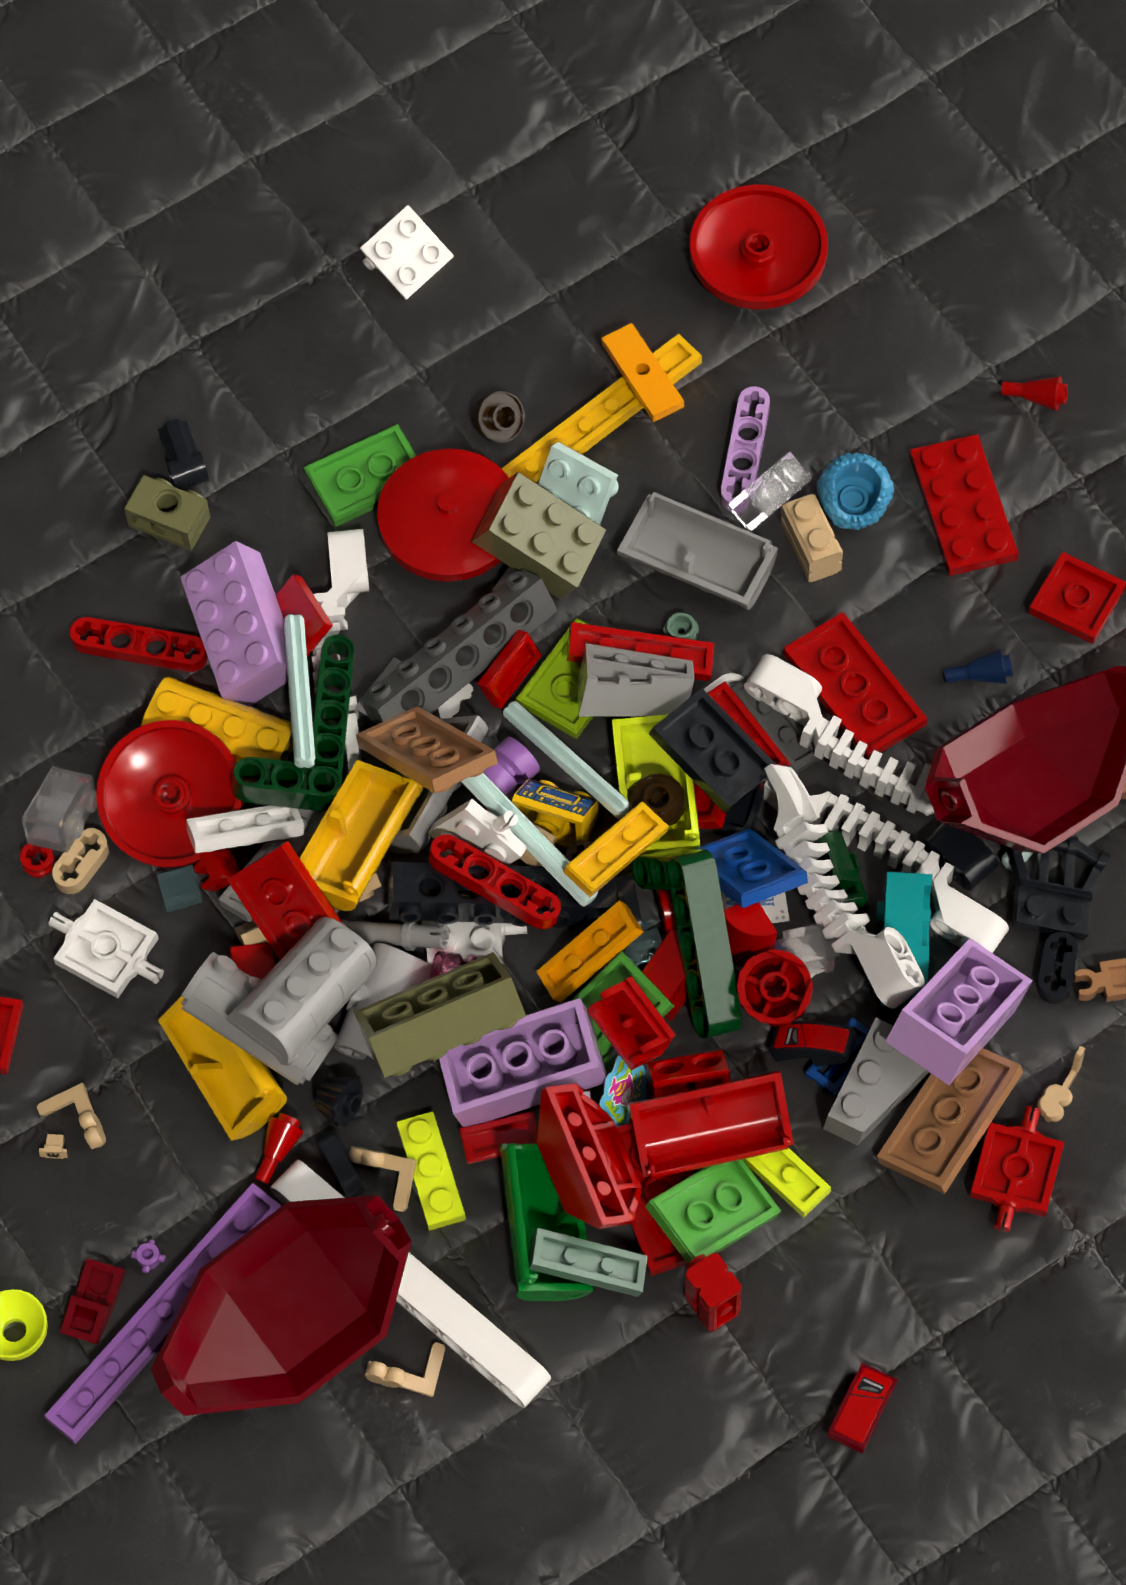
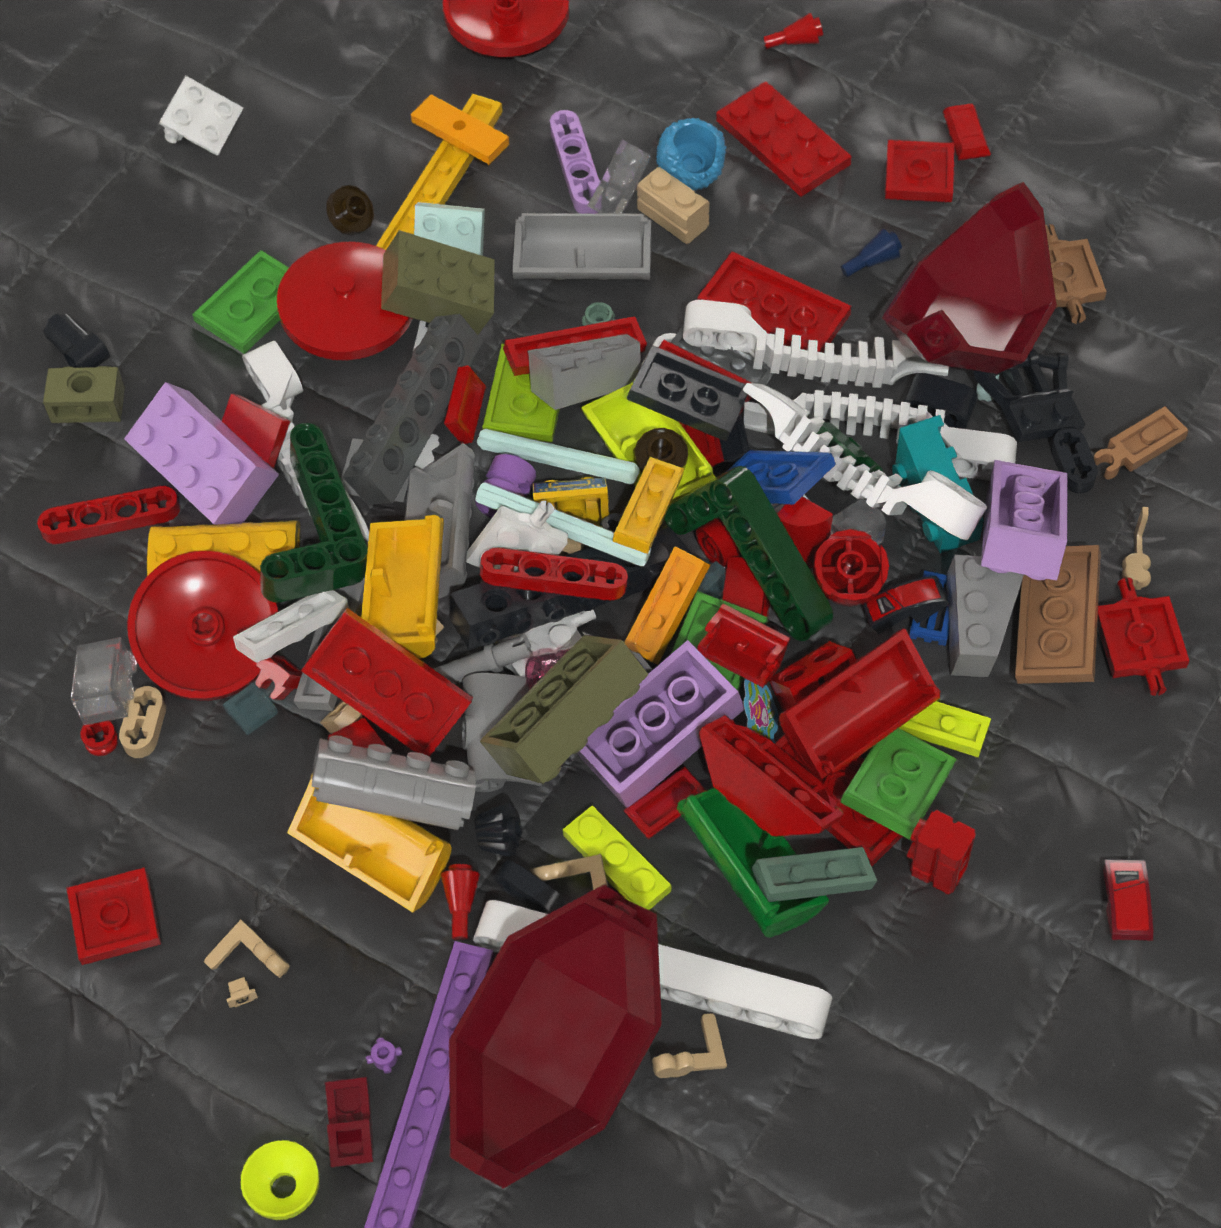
camera: 25 degrees left, 5 degrees down
(106, 948) = (205, 788): white plate -> none
(299, 691) = (289, 485): light aqua axle -> none
(305, 989) = (428, 733): light grey container -> none
(427, 749) = (434, 486): medium nougat plate -> none

